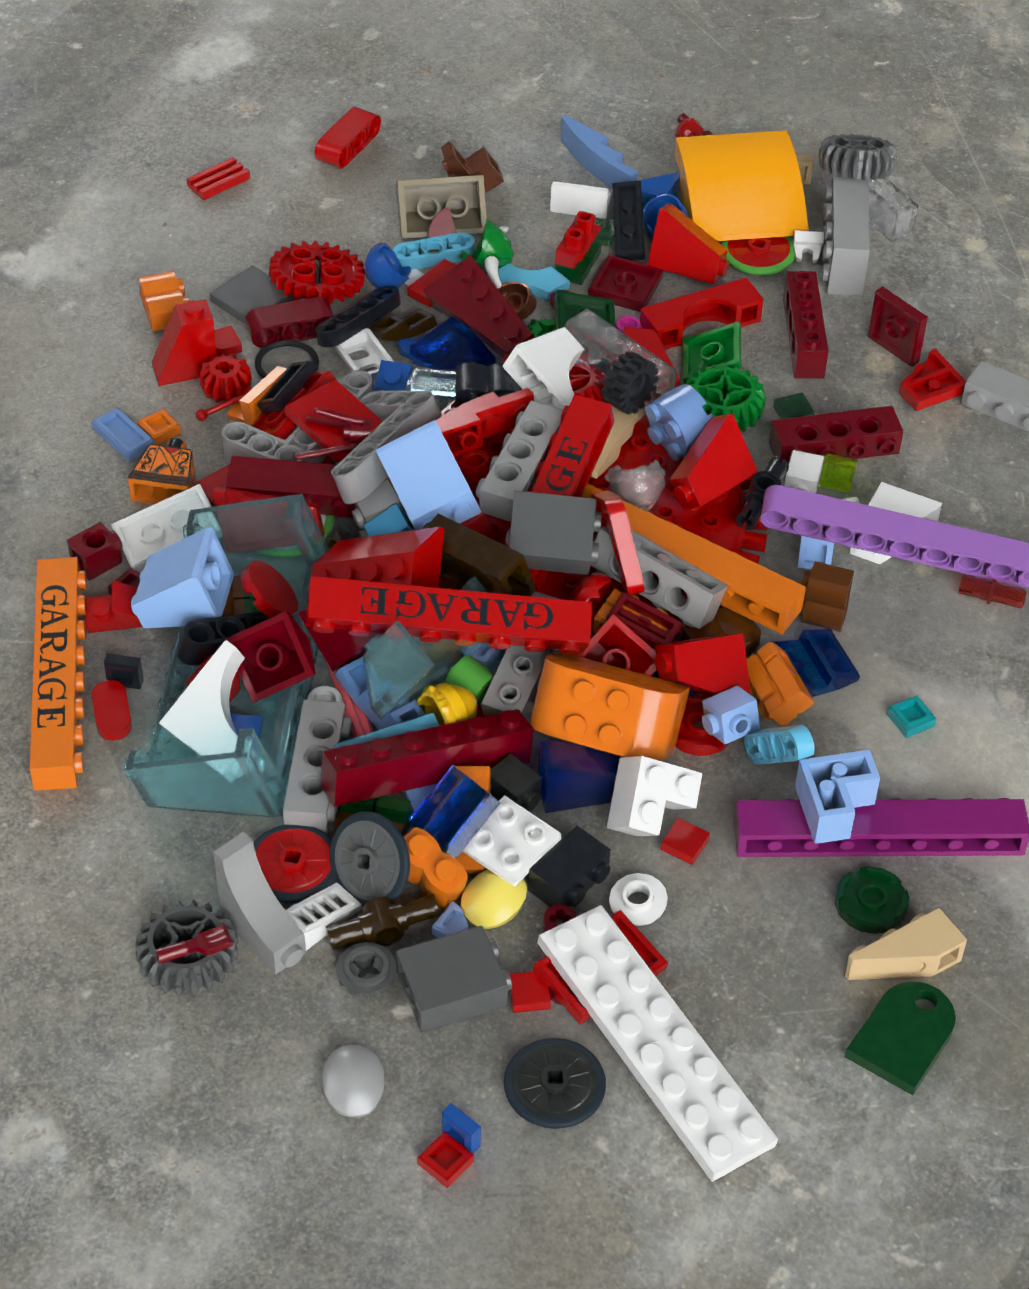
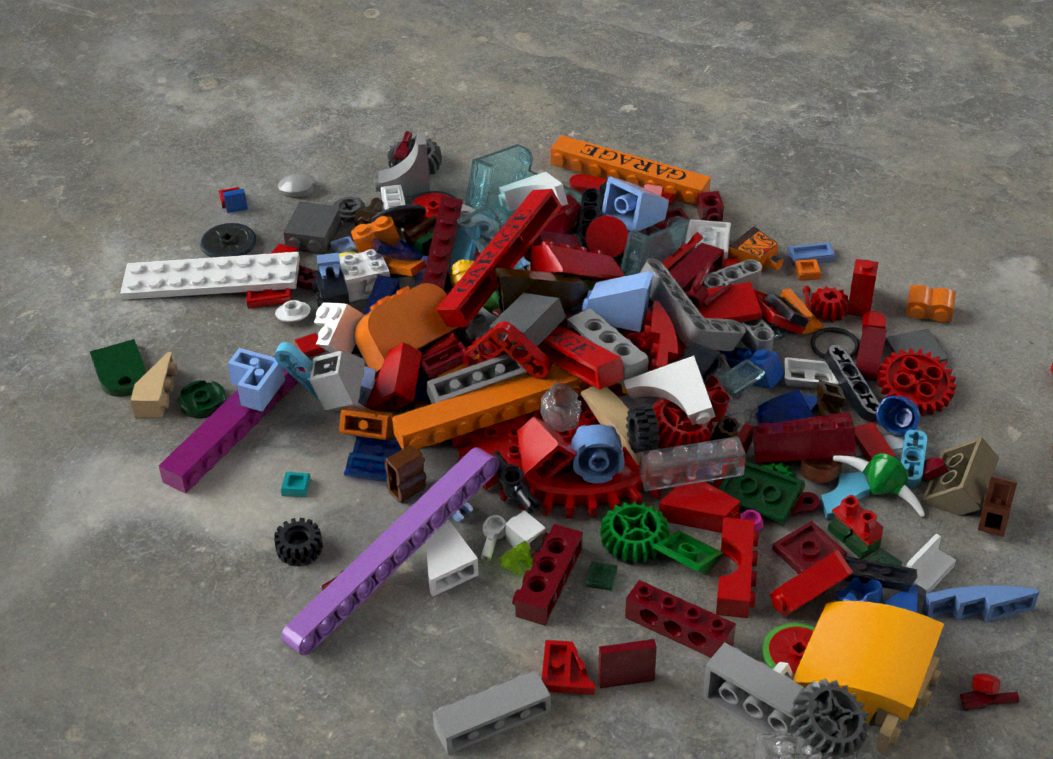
camera: 125 degrees right, 5 degrees down
(550, 862) = (328, 262): none -> light blue tile
(769, 690) = (337, 379): none -> light grey slope
(988, 671) = (300, 552): none -> black tyre

